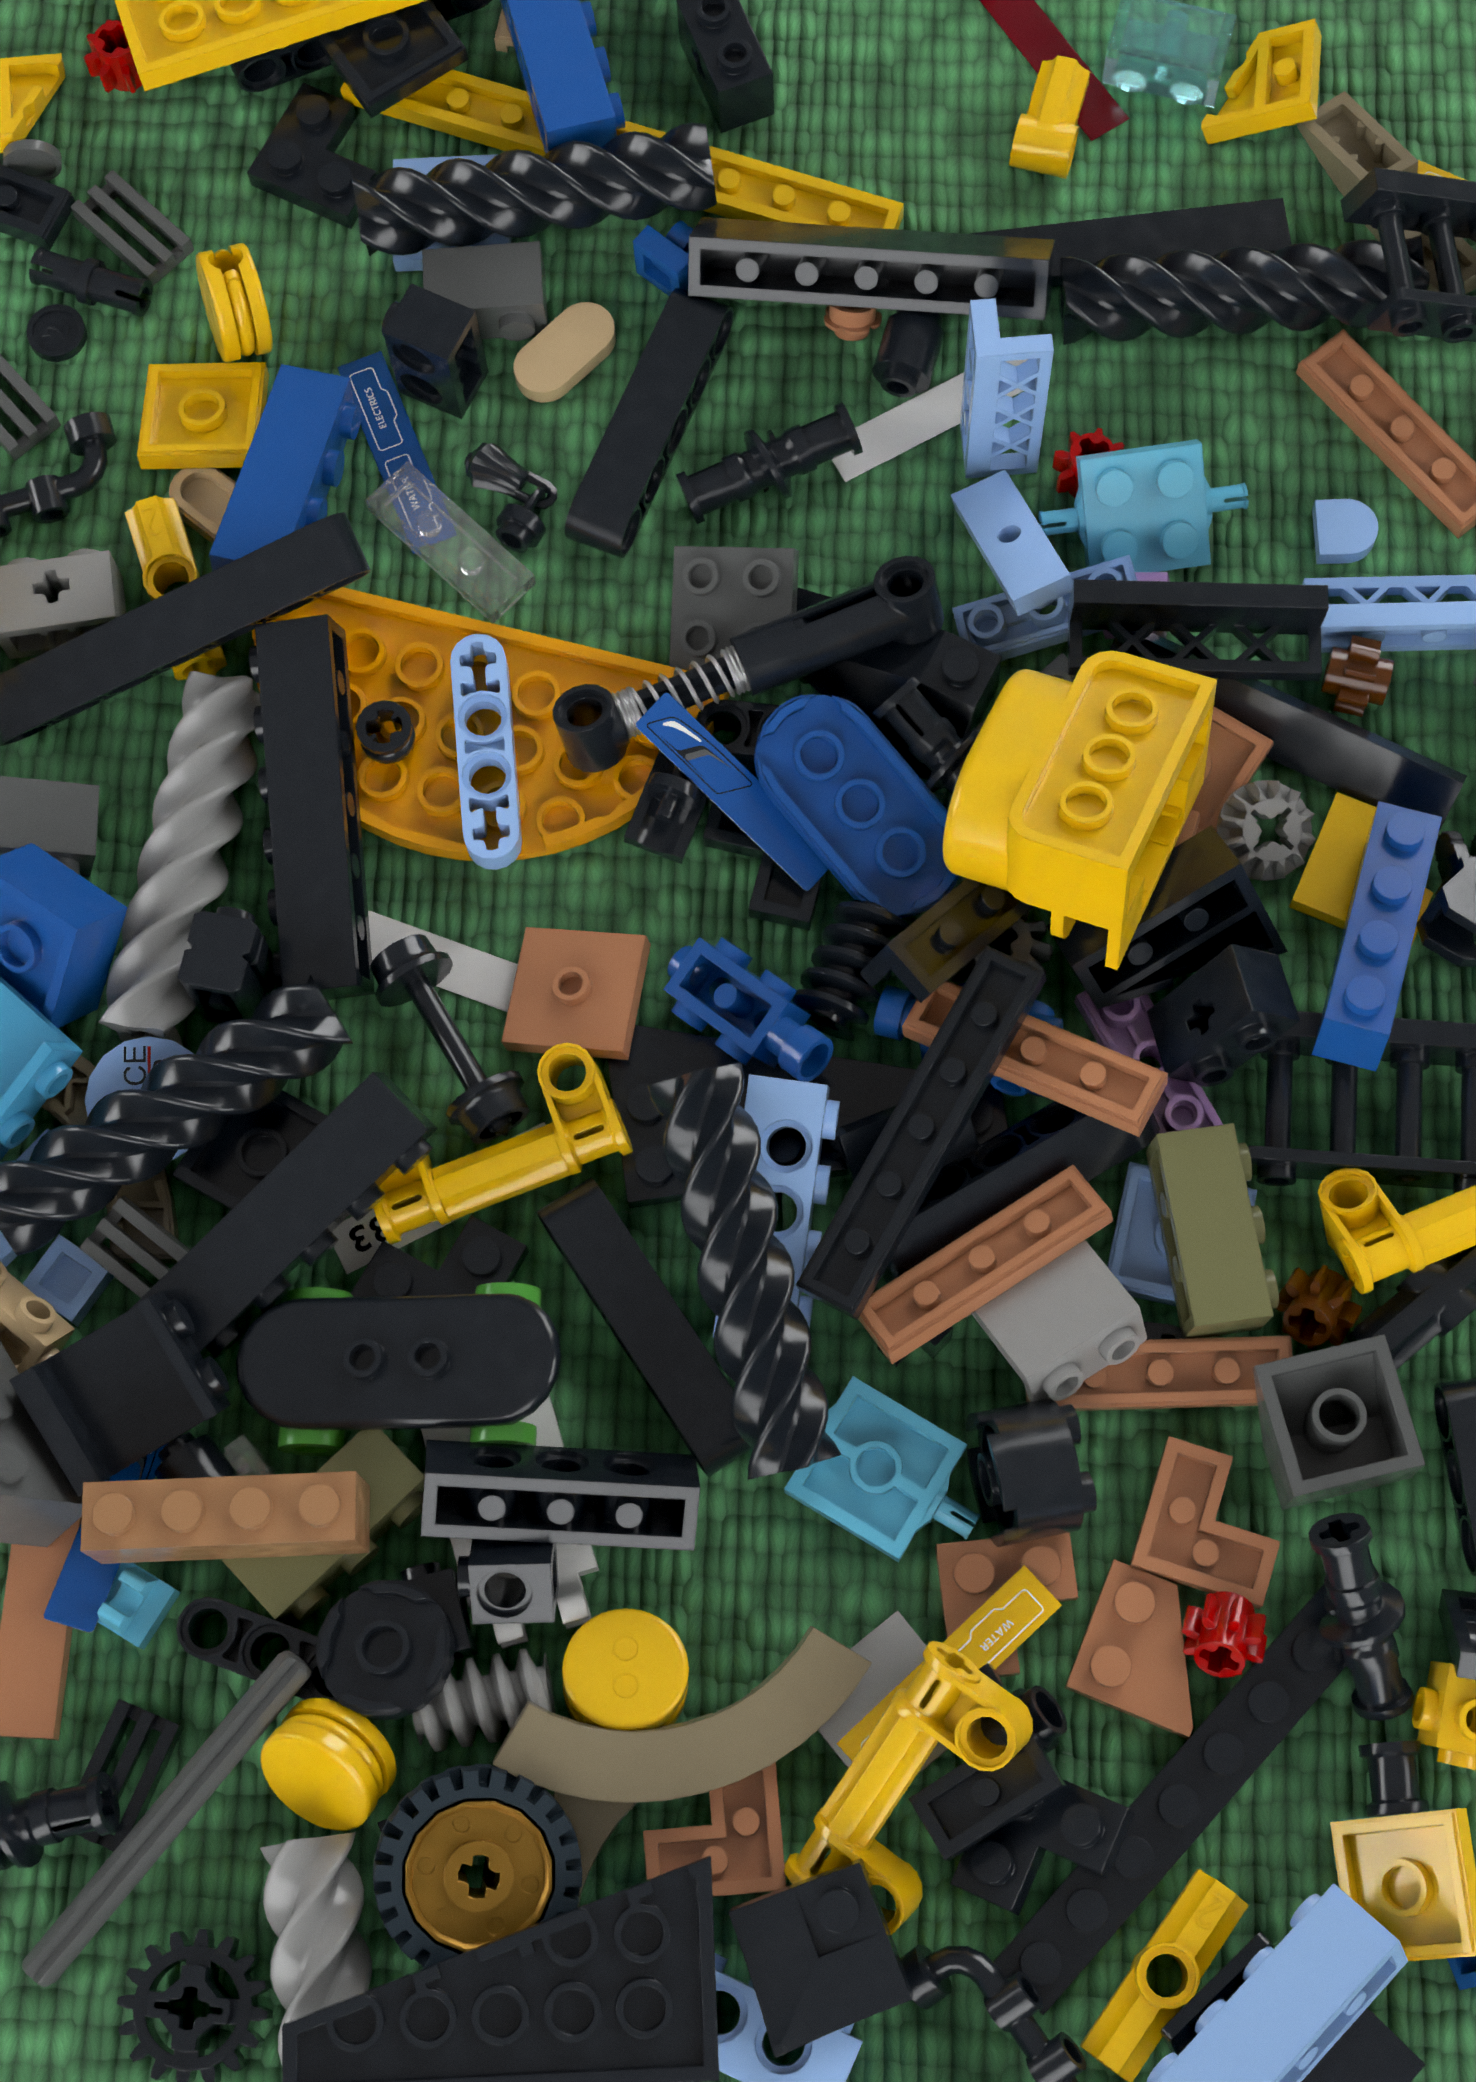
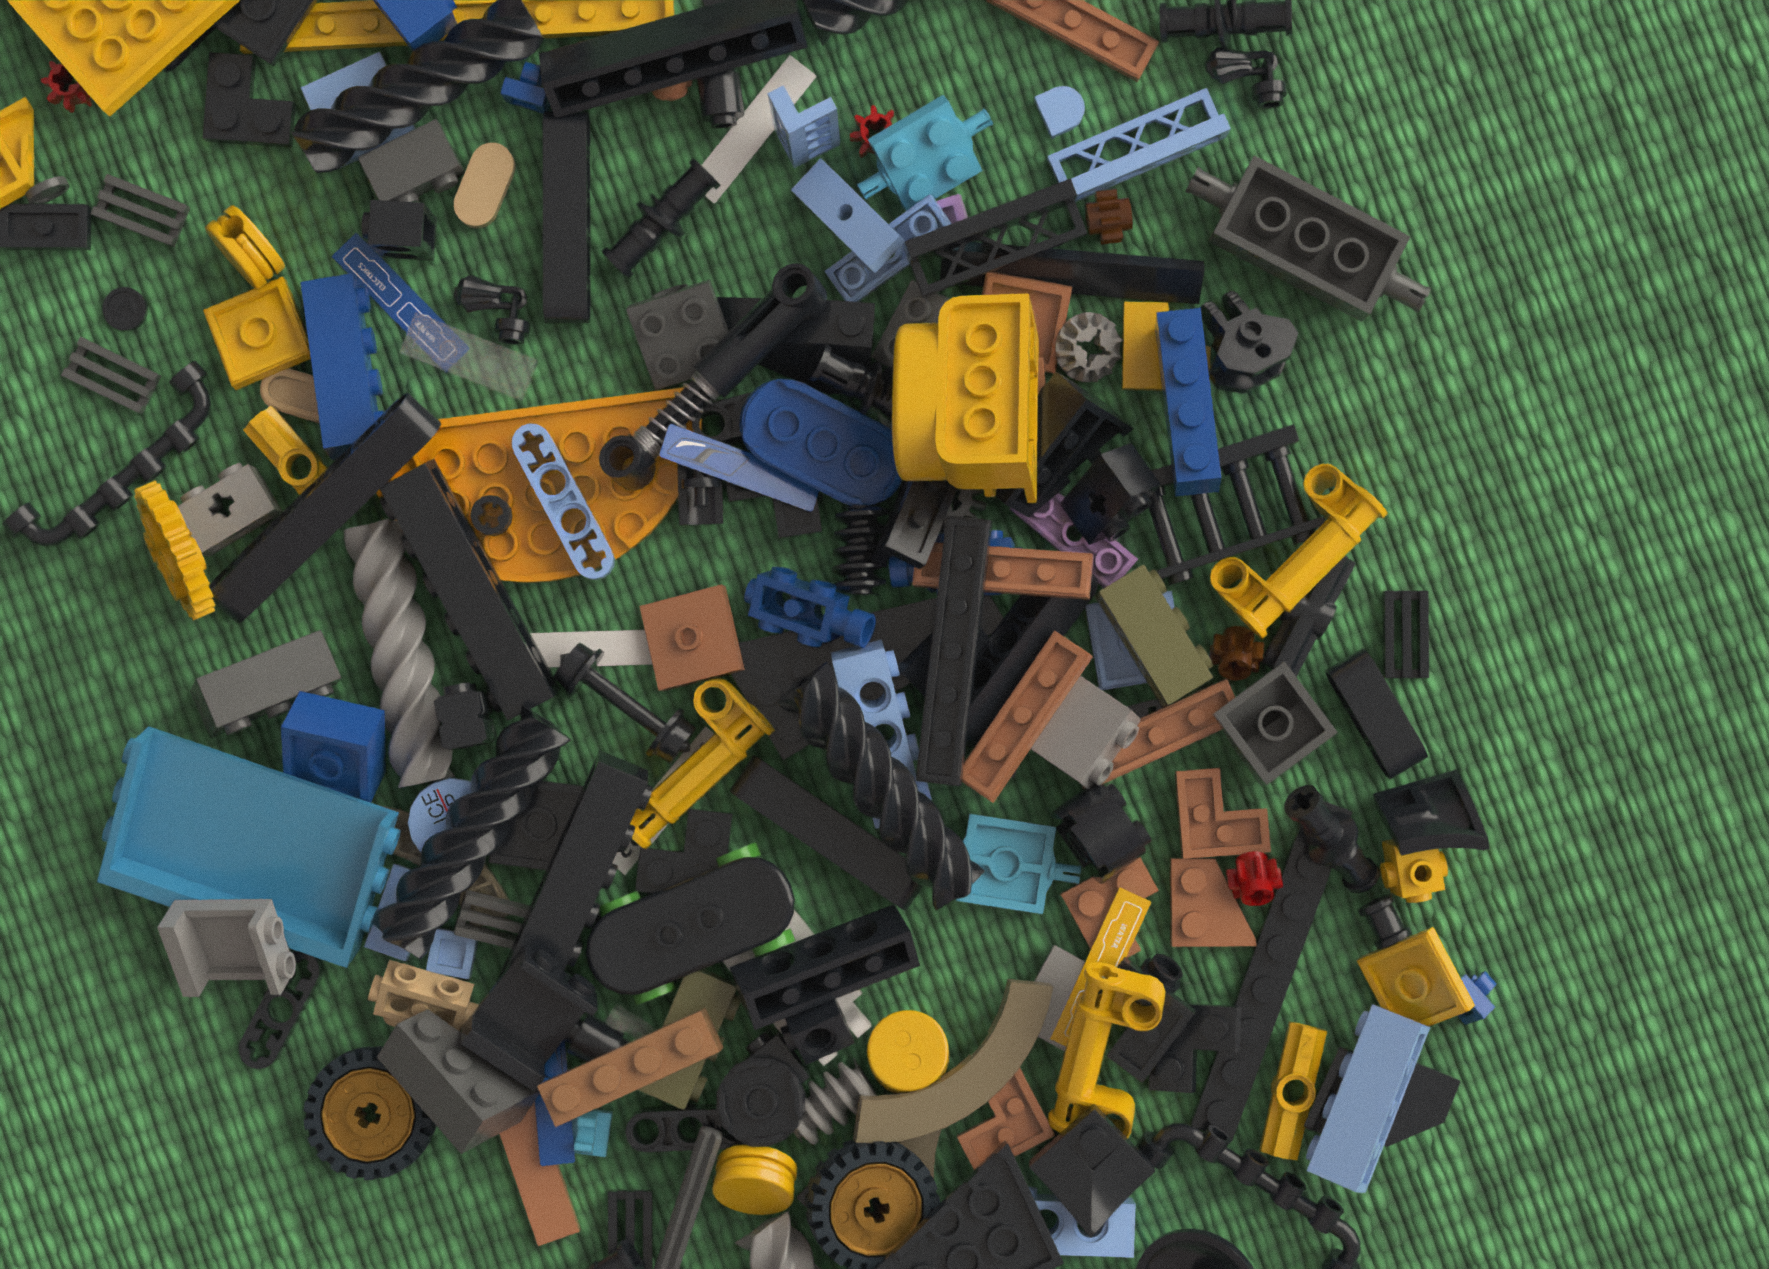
camera: 25 degrees left, 15 degrees up
(90, 281) = (132, 264): black pin -> none

